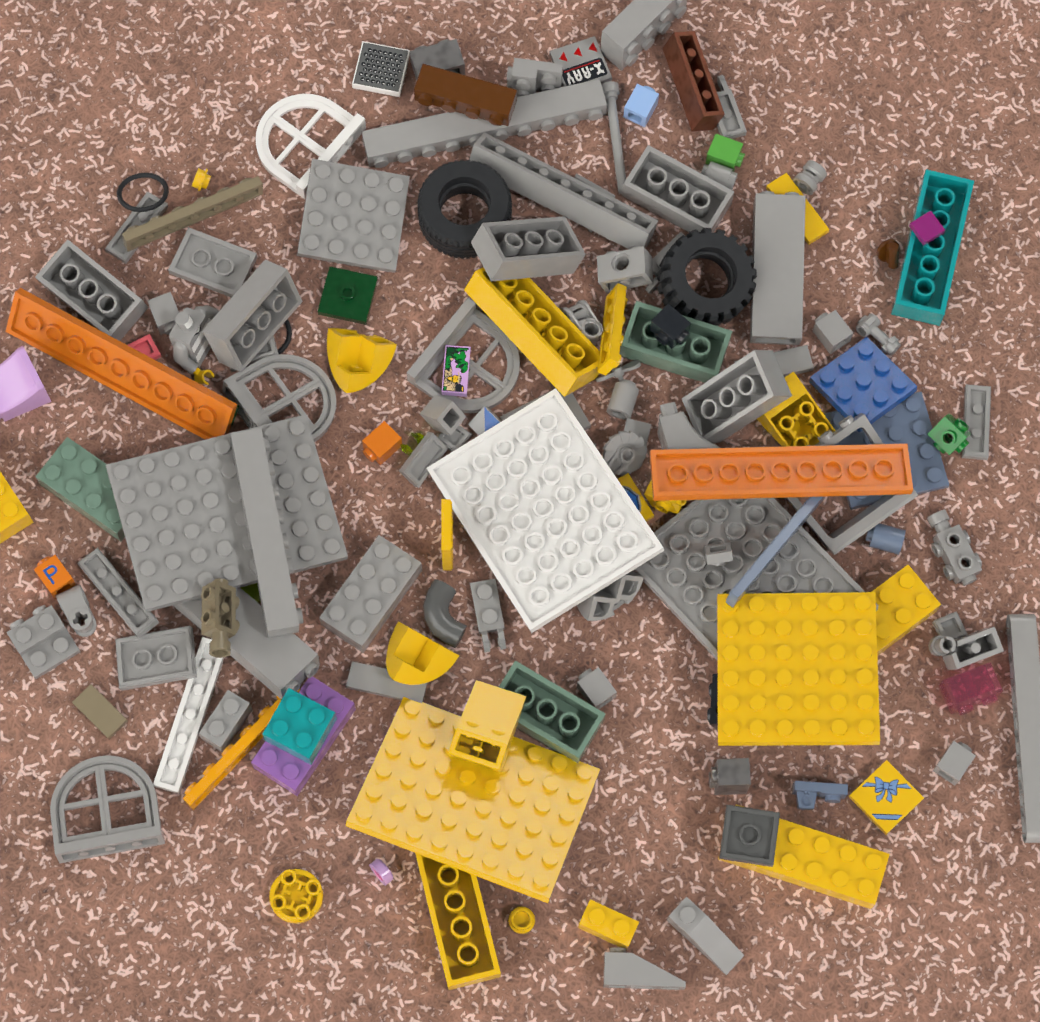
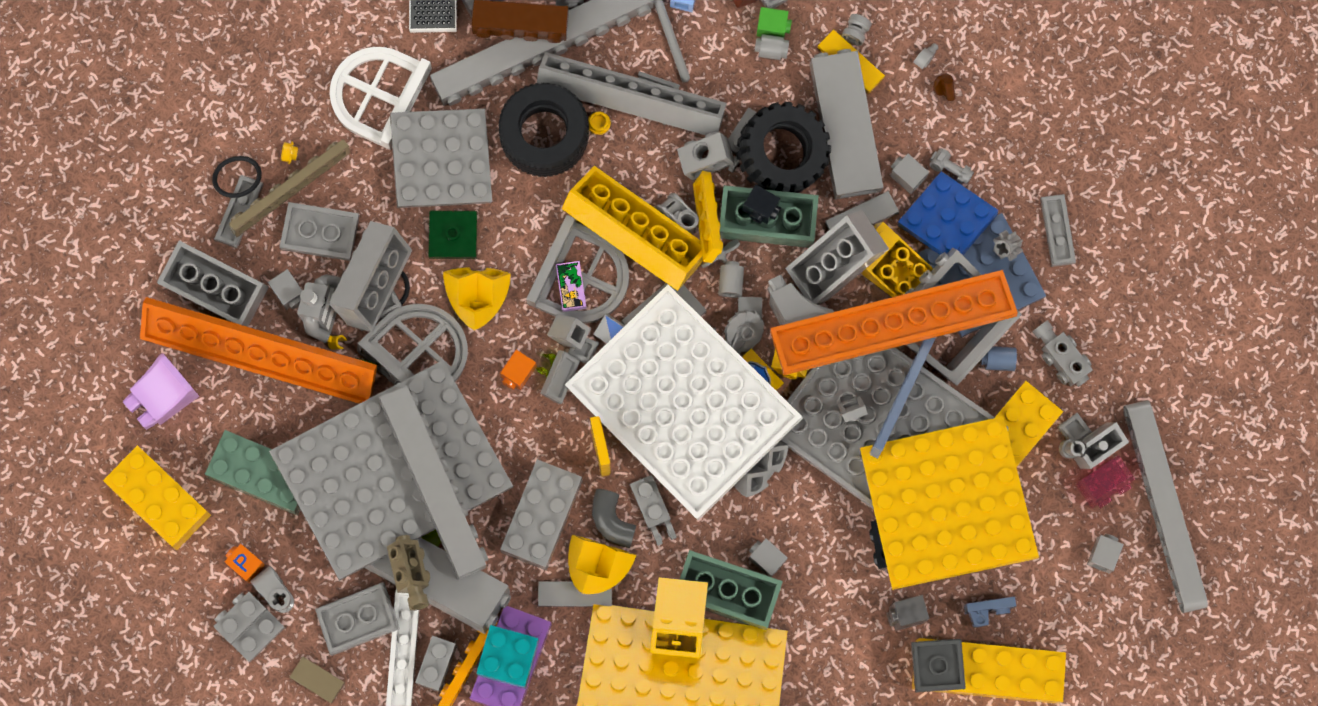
camera: 15 degrees left, 5 degrees up
(117, 593) = (306, 565): light grey tile -> none
(146, 346) = (276, 326): coral tile -> none
(523, 212) = (599, 123): none -> yellow plate
(528, 248) = (612, 157): light grey brick -> none
(677, 192) = (737, 71): light grey brick -> none
(876, 218) = (926, 56): none -> light grey piece
(886, 797) = (1050, 599): yellow tile -> none
(919, 423) = (1008, 245): none -> light grey gear
(927, 228) = (976, 58): magenta tile -> none
(930, 268) = (984, 73): teal brick -> none
(942, 438) = (1038, 249): green brick -> none

